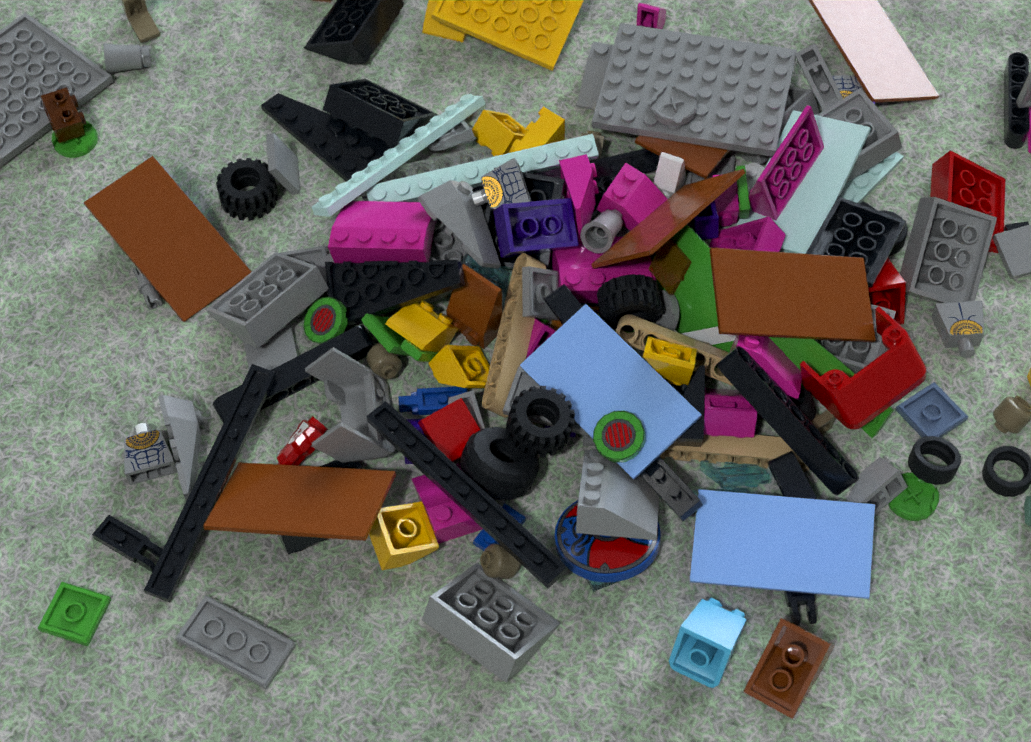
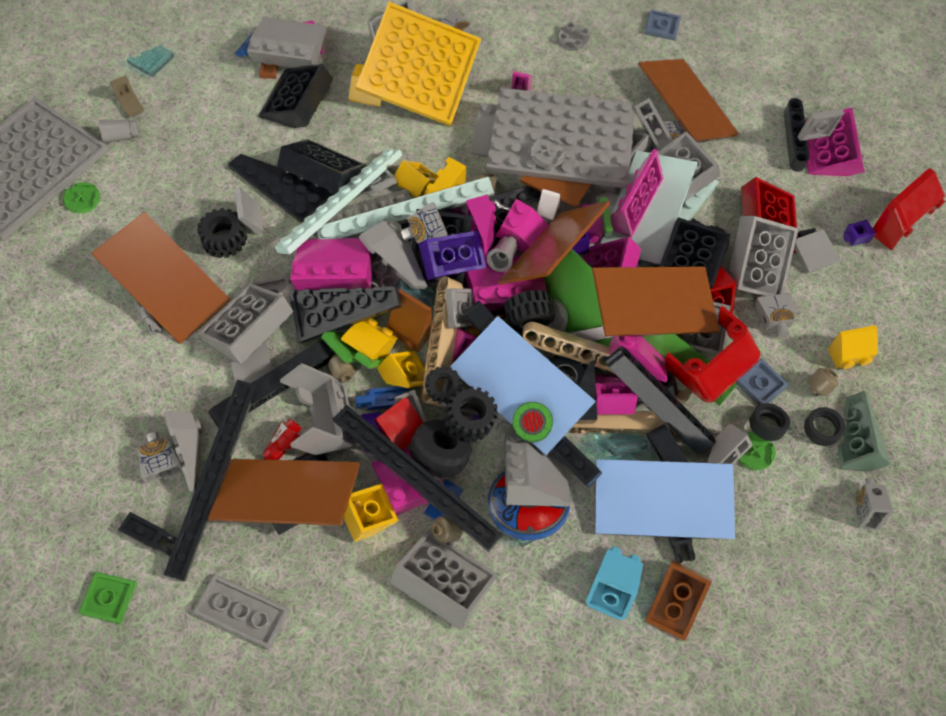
camera: 10 degrees left, 5 degrees up
(63, 114) = (70, 180): reddish brown brick -> none
(325, 320) = (292, 337): tile -> none
(505, 372) = (438, 373): none -> black tyre
(669, 266) = (559, 282): clear orange piece -> none
(670, 360) = (568, 357): yellow slope -> none

